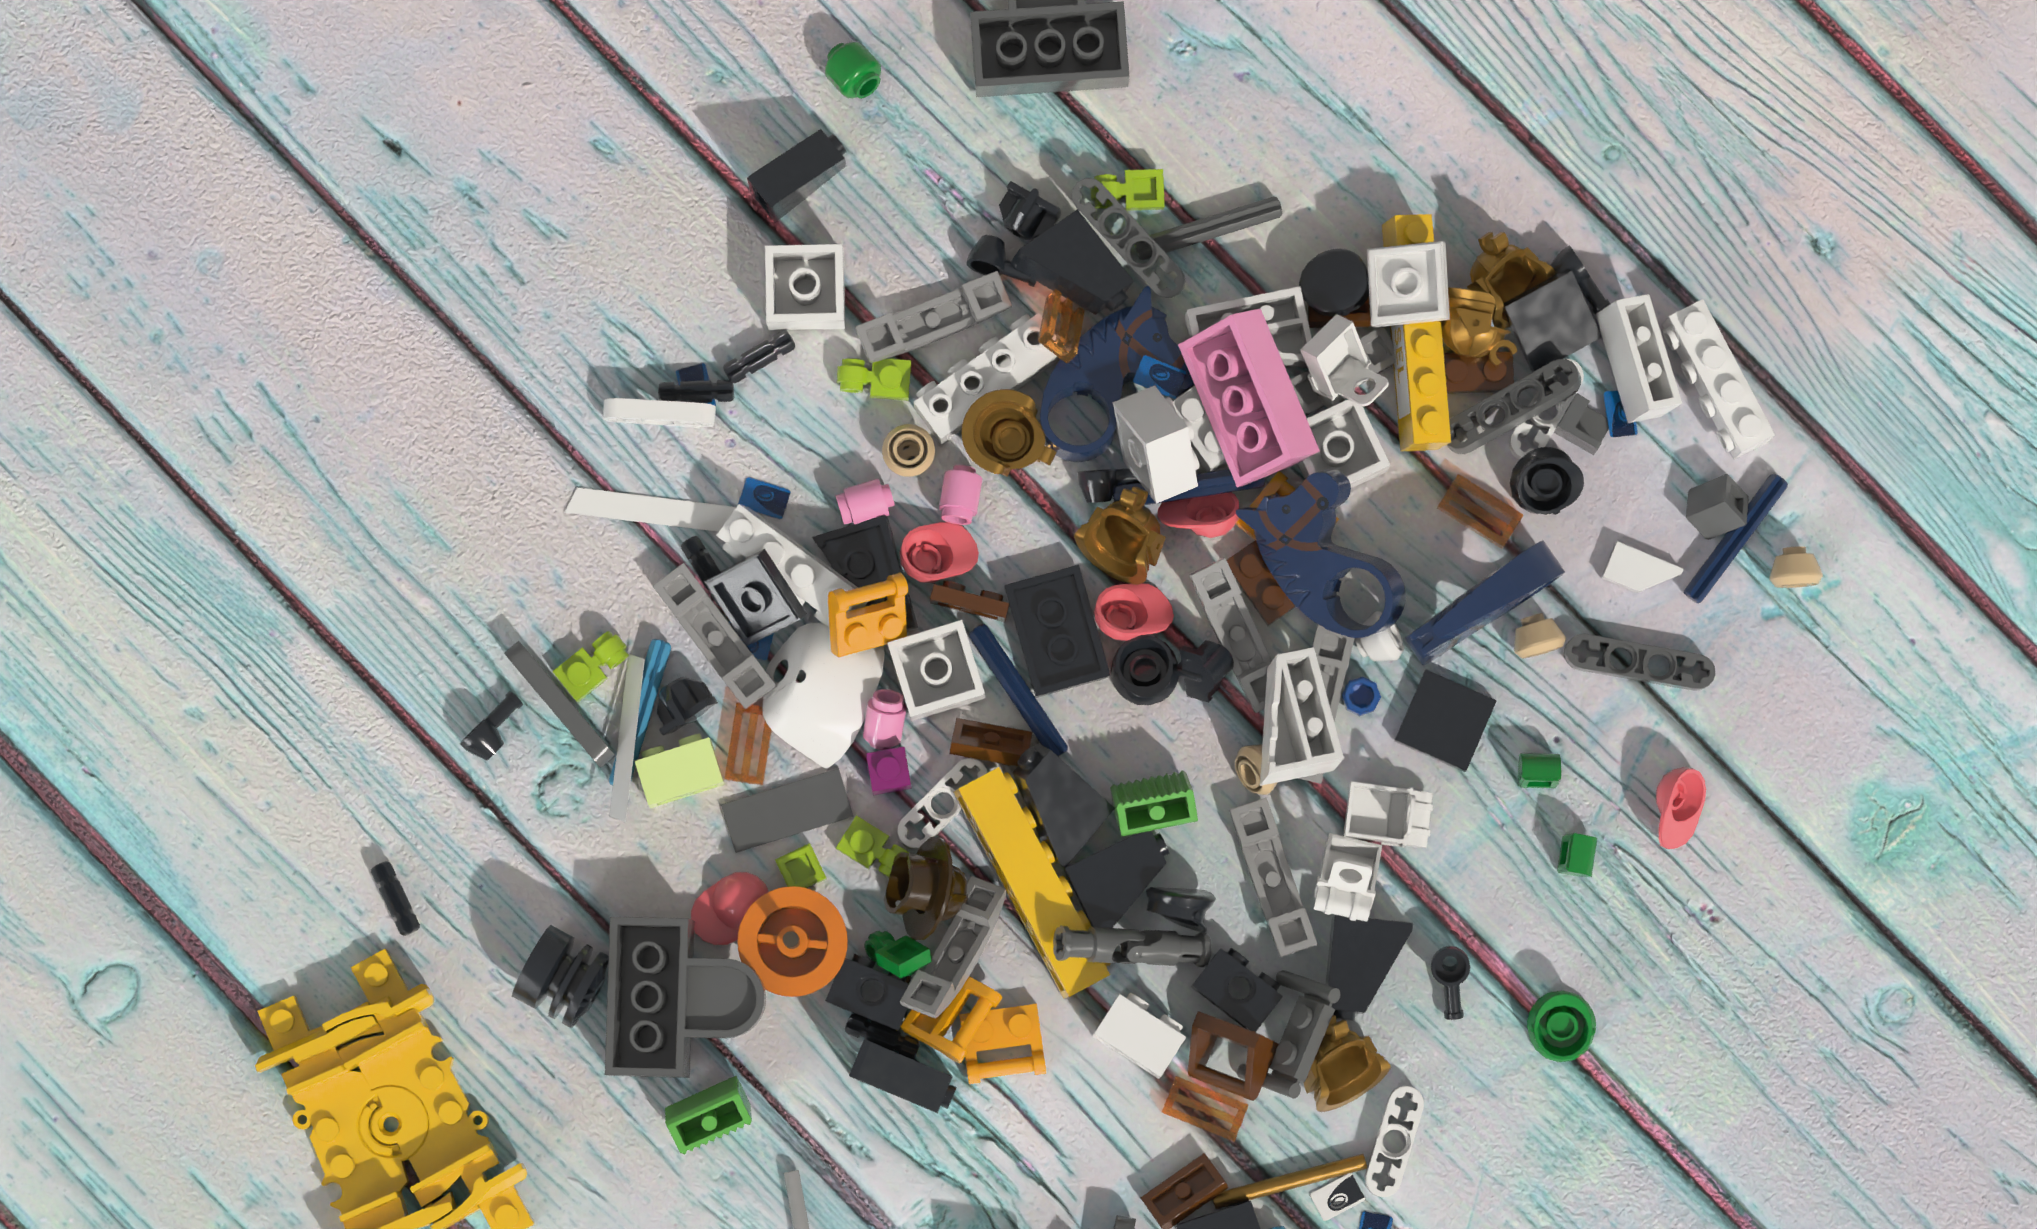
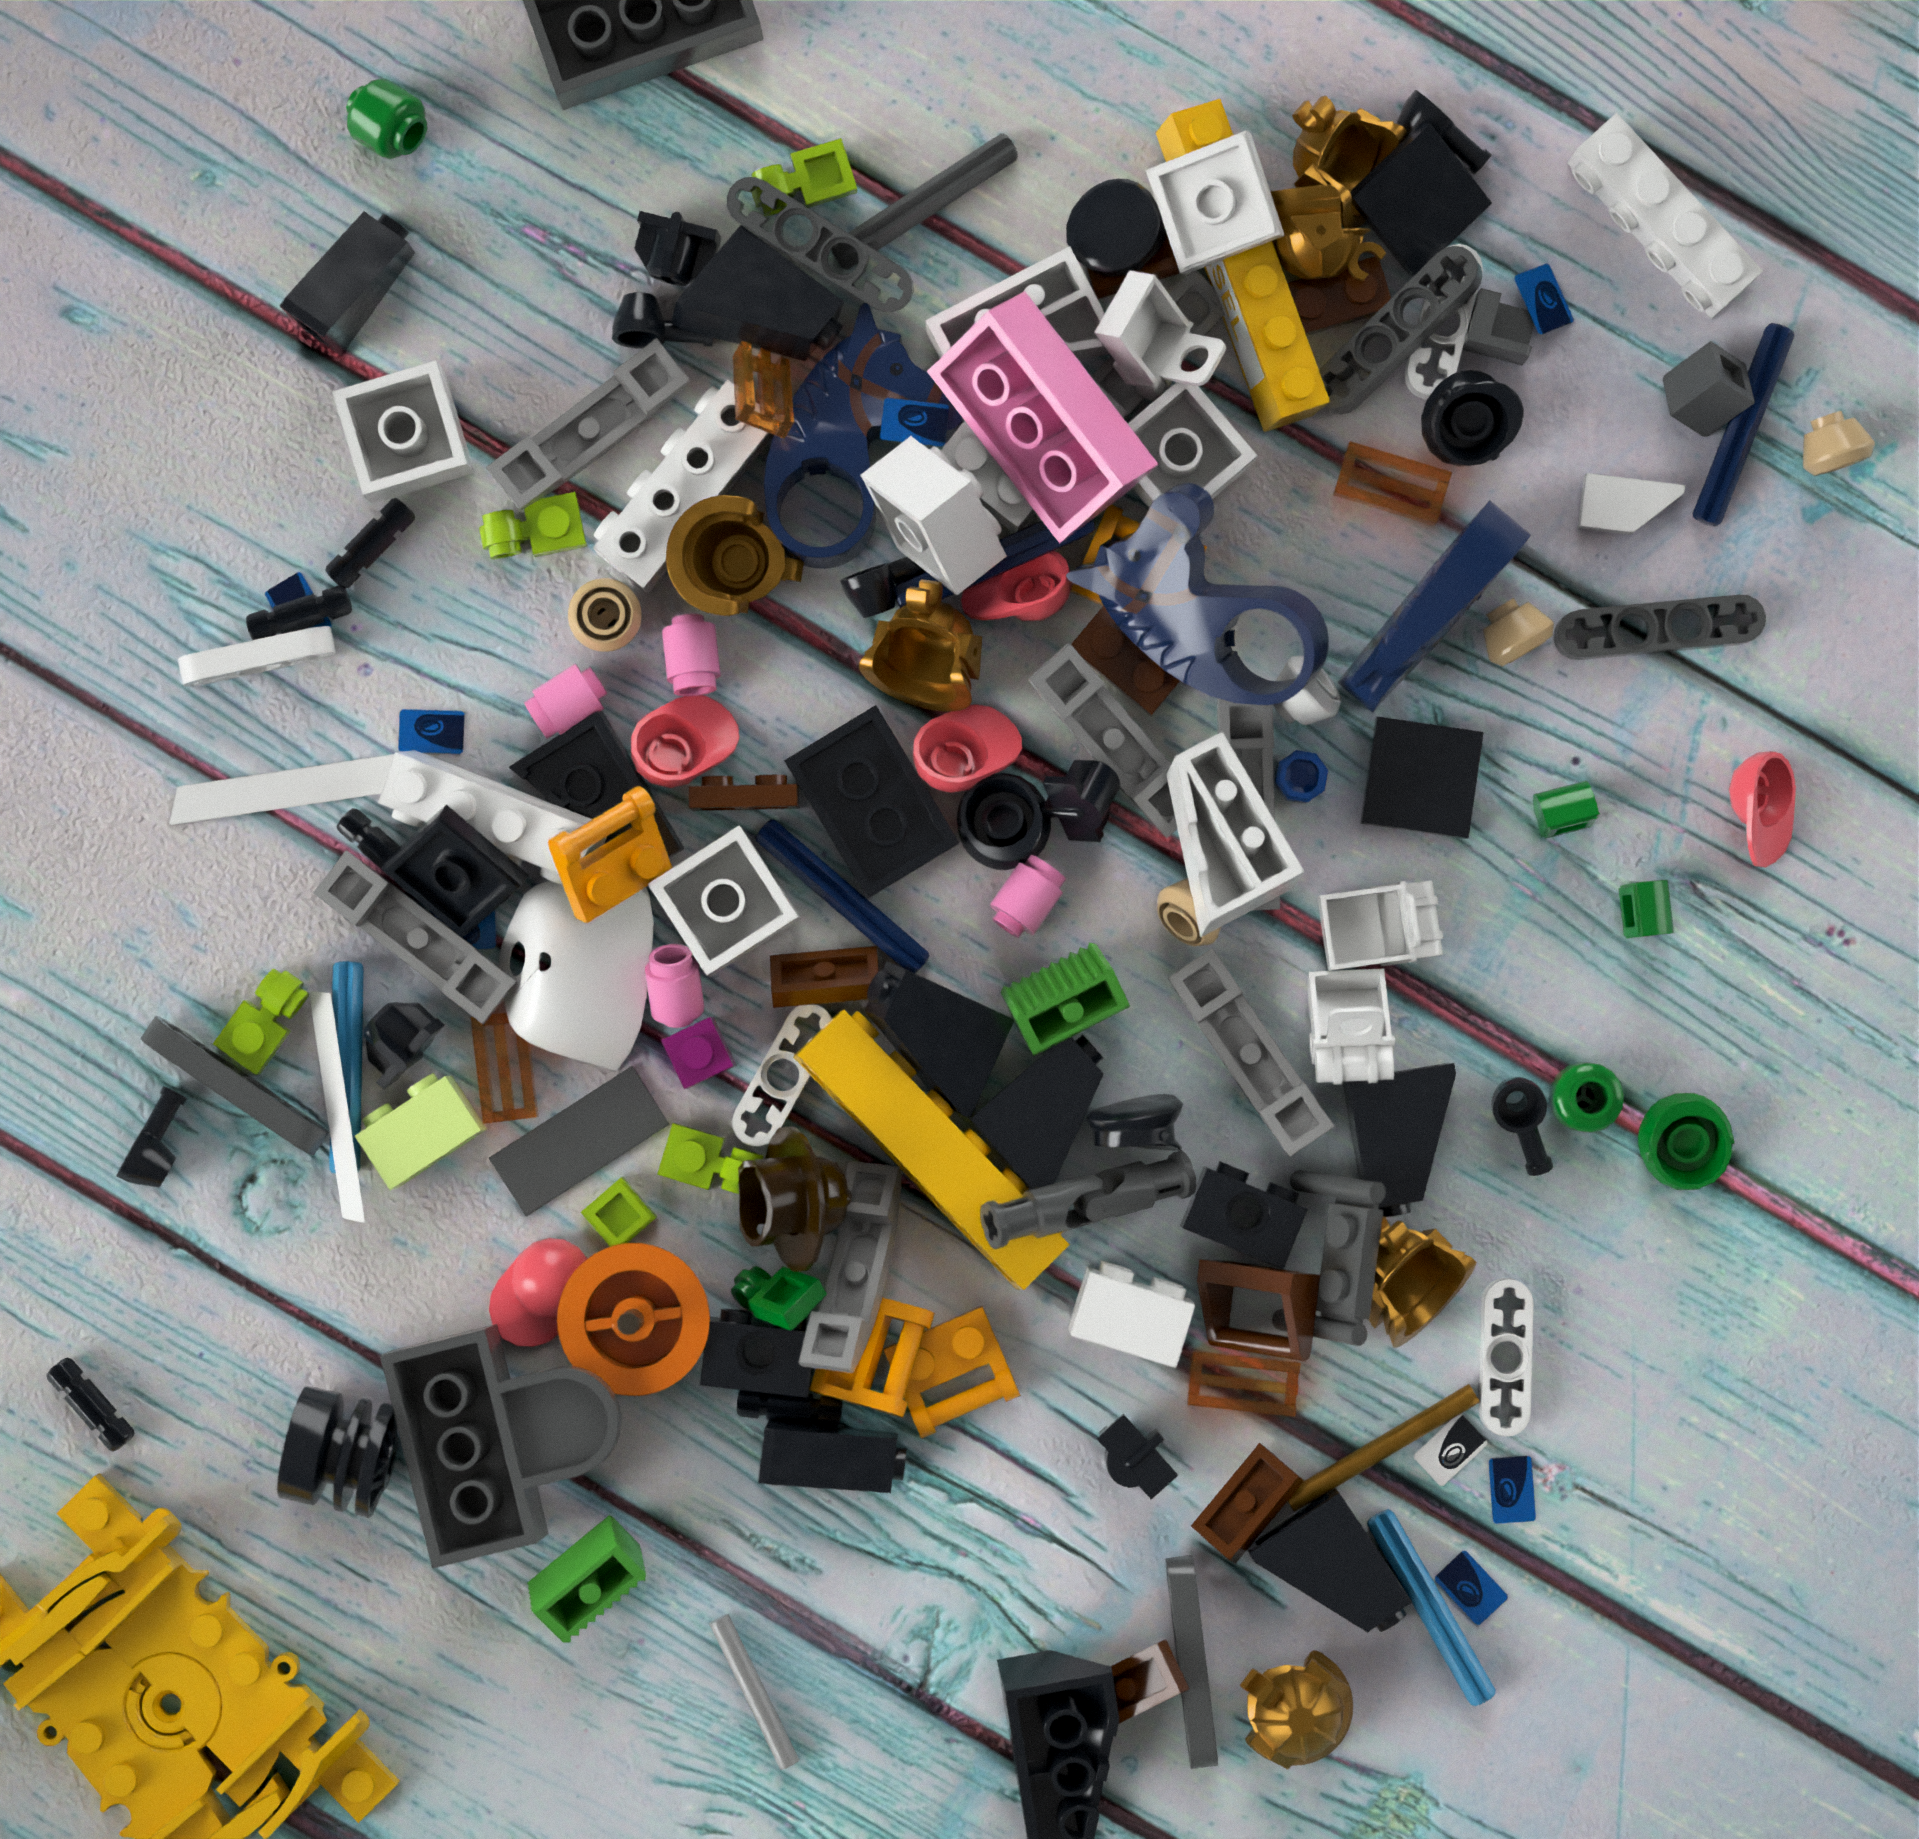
camera: 10 degrees left, 5 degrees up
(1113, 1137) = (1133, 1458): none -> black piece
(1147, 726) = (1027, 897): none -> bright pink brick
(1513, 971) = (1605, 1099): none -> green head
(1638, 358) = (1550, 217): white brick -> none

